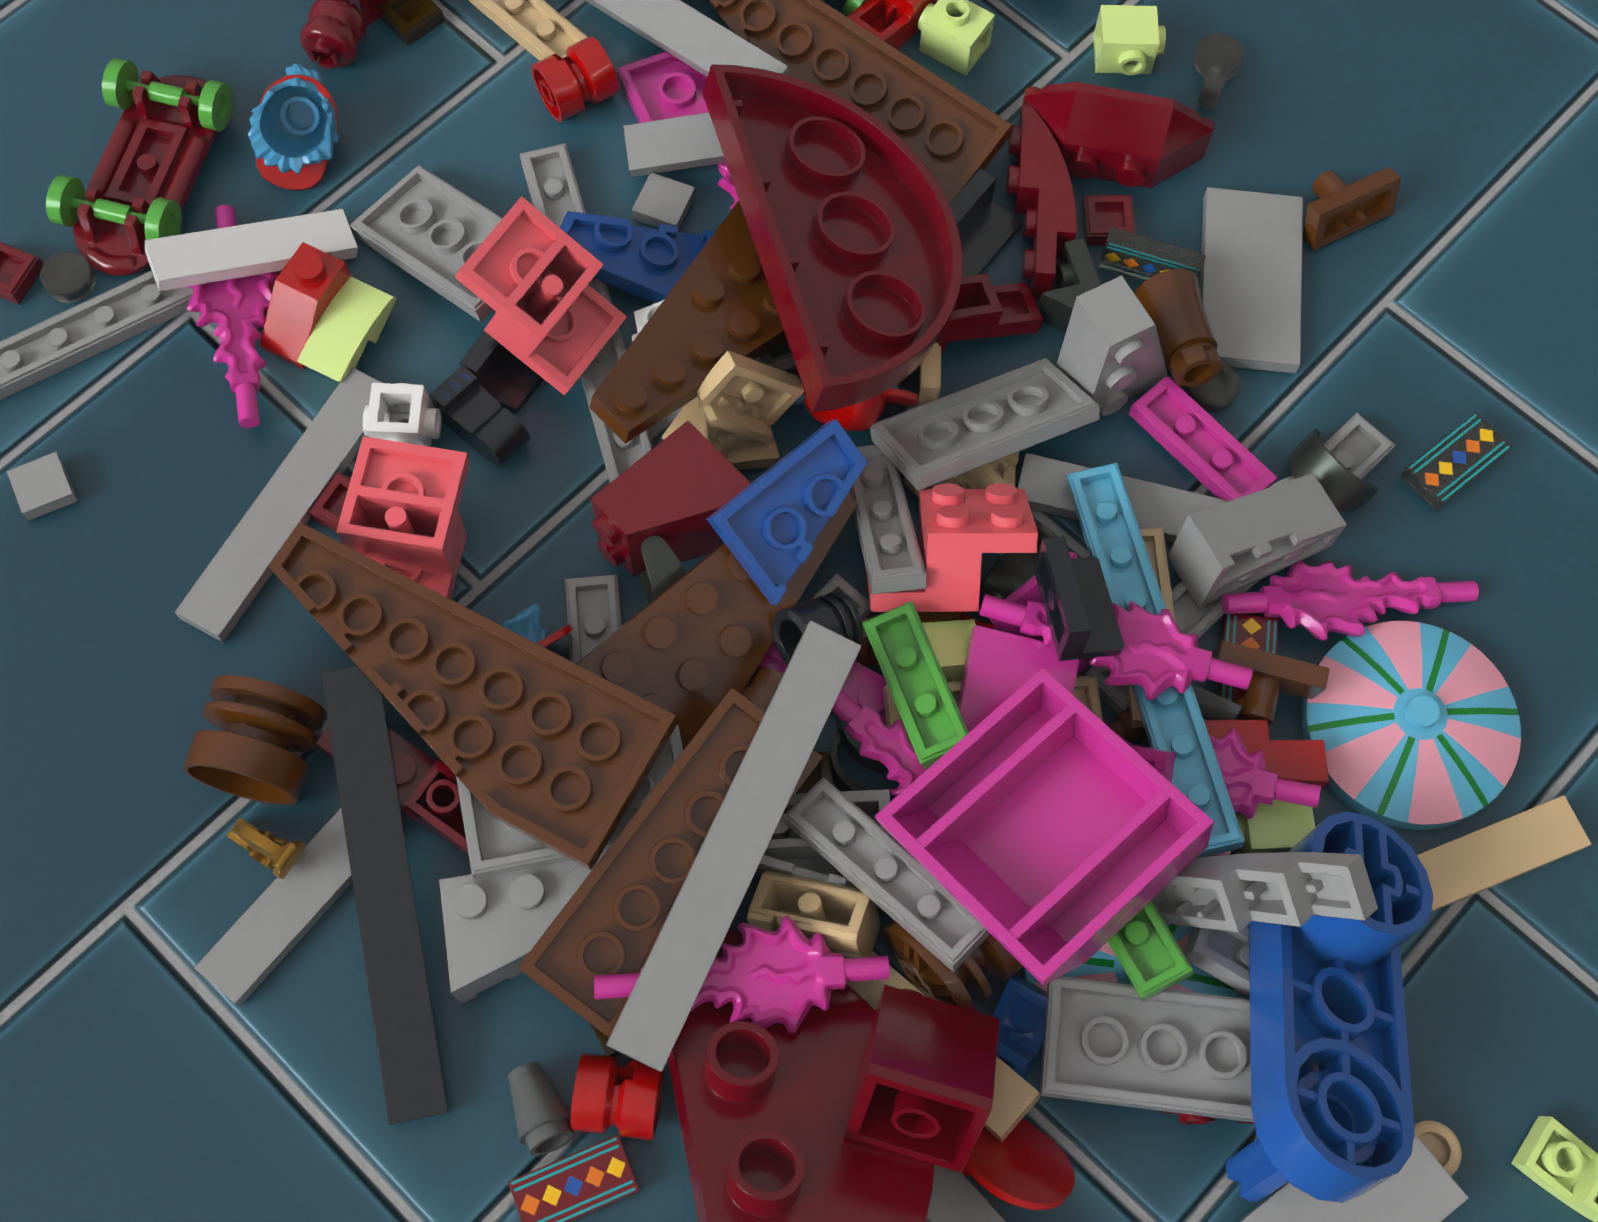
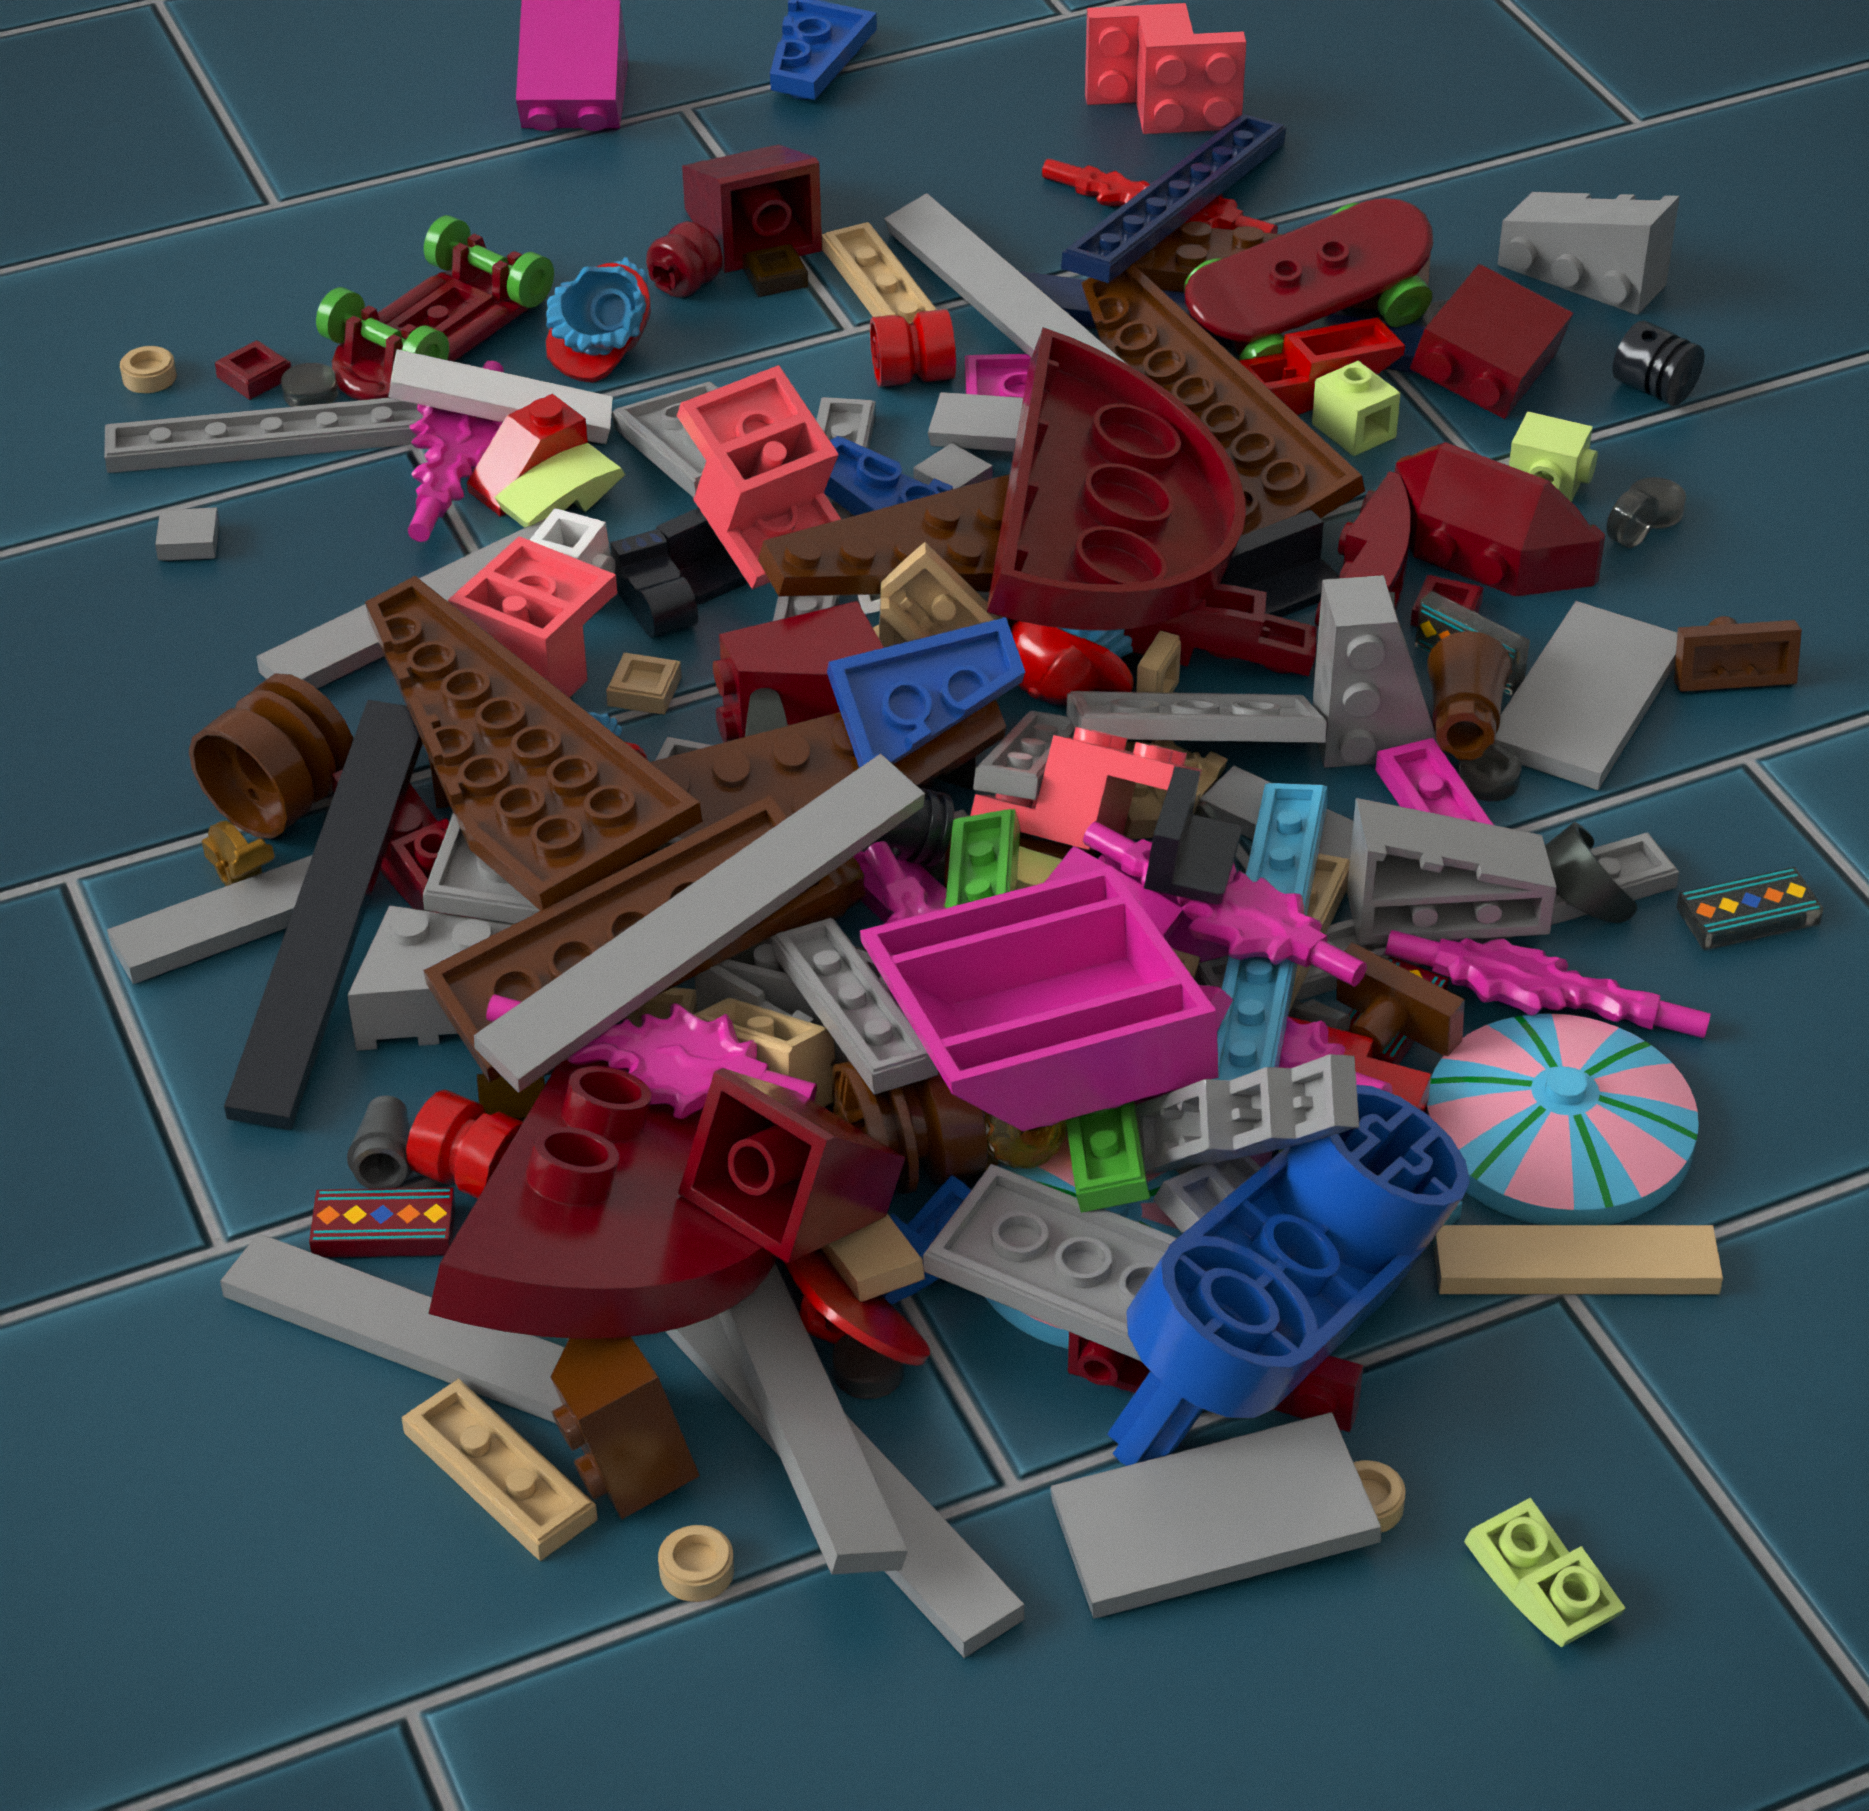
camera: 25 degrees right, 25 degrees down
(515, 521) = (644, 683): none -> tan tile

